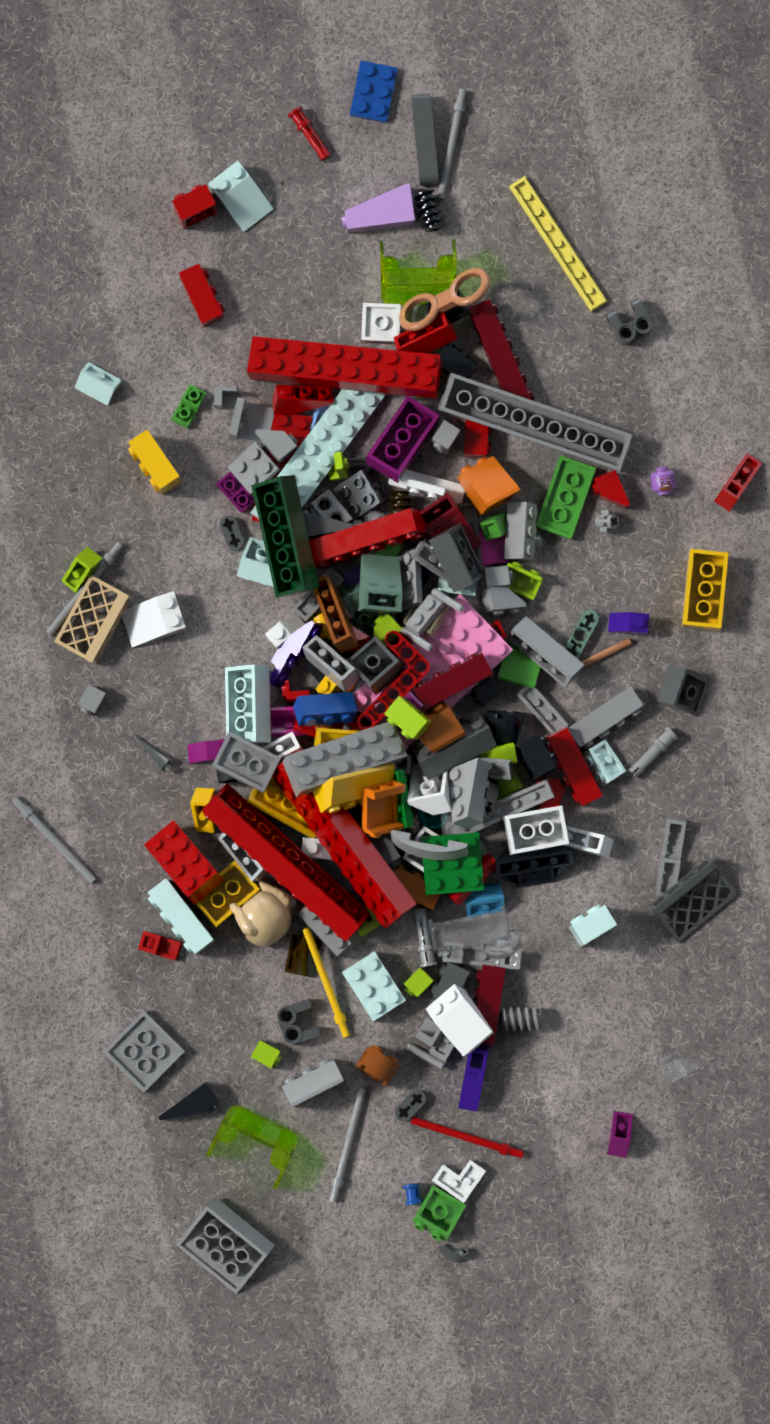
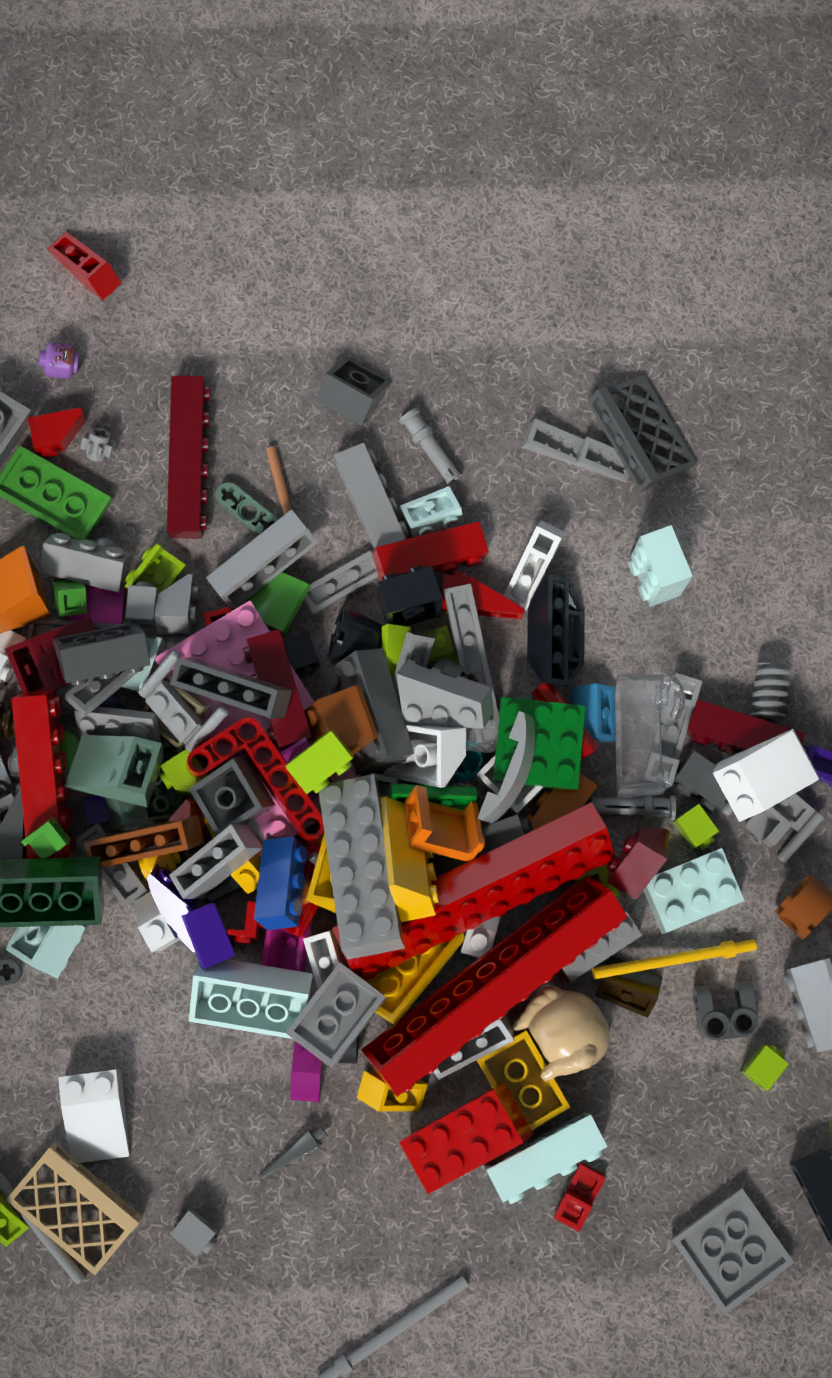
camera: 80 degrees left, 5 degrees down
(281, 668) = (208, 935): none -> dark purple slope
(324, 551) = (47, 838): none -> bright green panel
(385, 944) = (639, 860): none -> dark red slope
(446, 649) = (231, 687): none -> dark grey brick
(536, 830) = (513, 616): white brick -> none
(611, 584) = (186, 457): none -> dark red brick
(628, 623) = (245, 442): dark purple slope -> none
(704, 590) = (221, 333): yellow brick -> none

